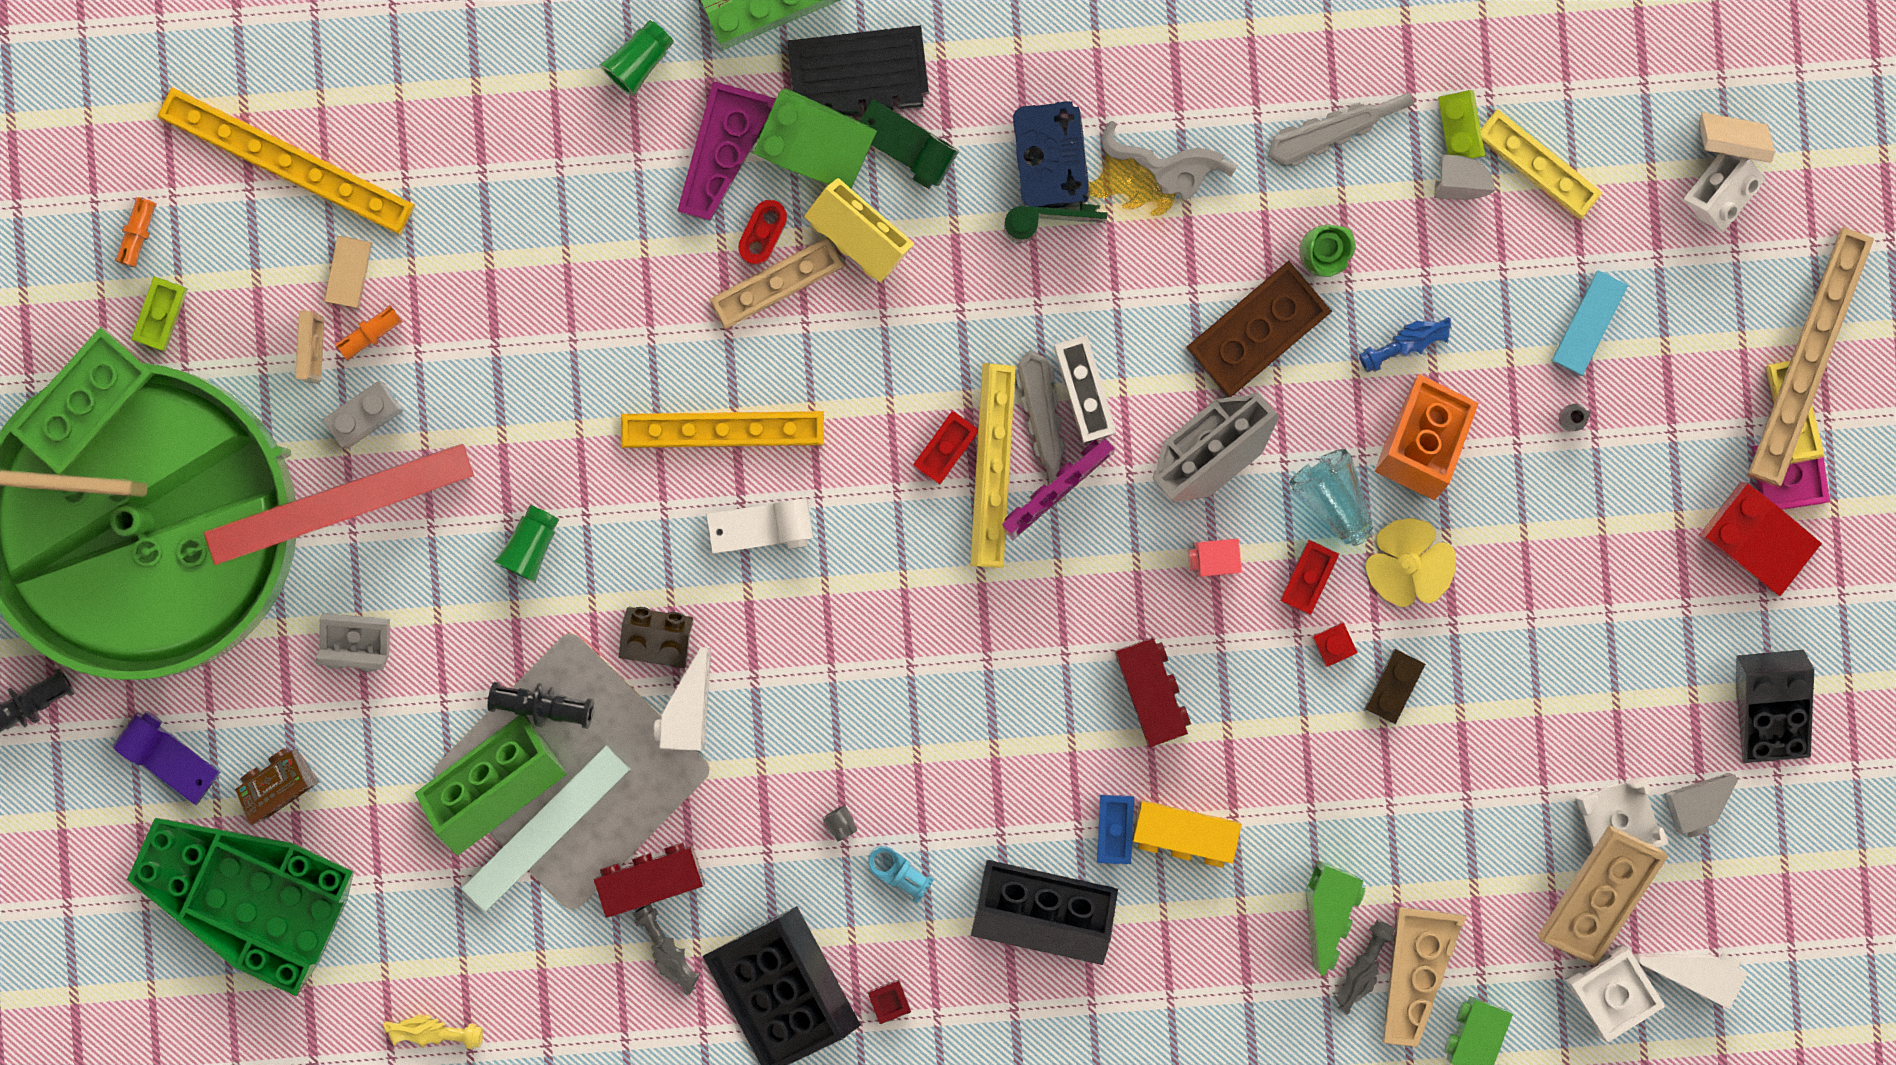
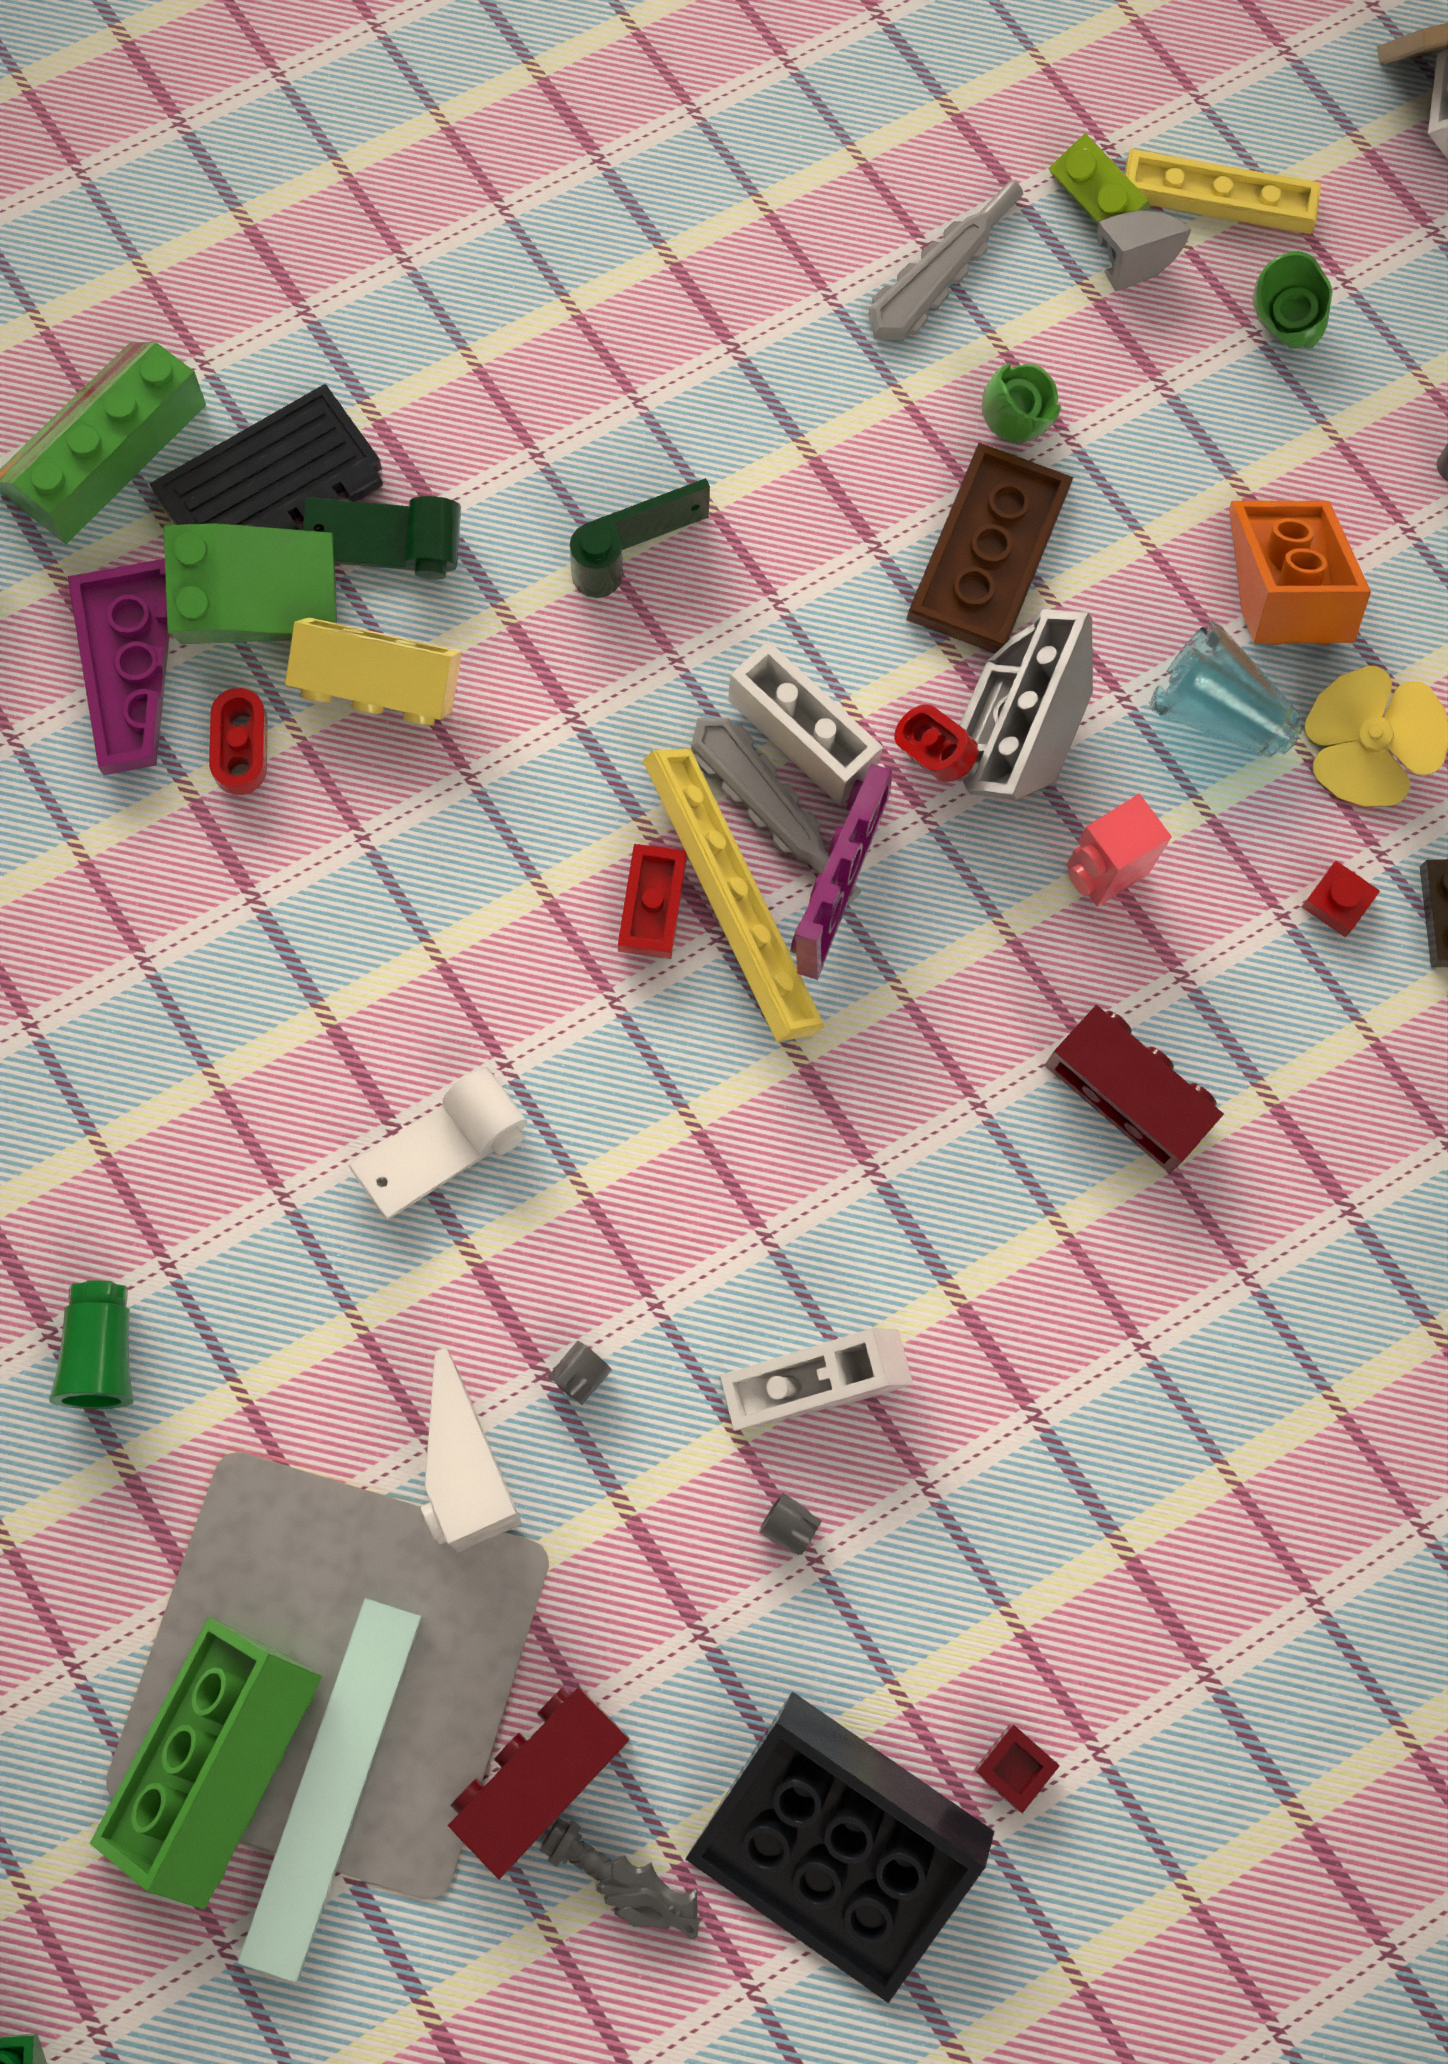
camera: 30 degrees left, 15 degrees down
(540, 705) = (228, 1587): black piece -> none
(655, 637) = (361, 1390): dark brown bracket -> none
(722, 429) = (312, 1039): yellow tile -> none
(772, 688) = (580, 1372): none -> dark grey hose
(776, 283) = (292, 803): tan tile -> none
(894, 757) = (817, 1378): none -> white slope
(899, 871) = (919, 1552): medium azure connector -> none
(1045, 912) = (1171, 1495): black slope -> none
(1063, 155) = (599, 447): dark blue axle -> none
(1115, 829) = (1198, 1314): blue plate -> none
(1151, 179) = (737, 432): piece -> none
(1153, 446) = (936, 743): none -> red plate
(1186, 833) = (1303, 1264): yellow brick -> none
(1309, 577) = (1253, 824): red plate -> none
(1413, 338) = (1193, 462): blue piece -> none
(1530, 268) = (1293, 299): none -> bright green hair
(1589, 323) = (1404, 341): medium azure tile -> none

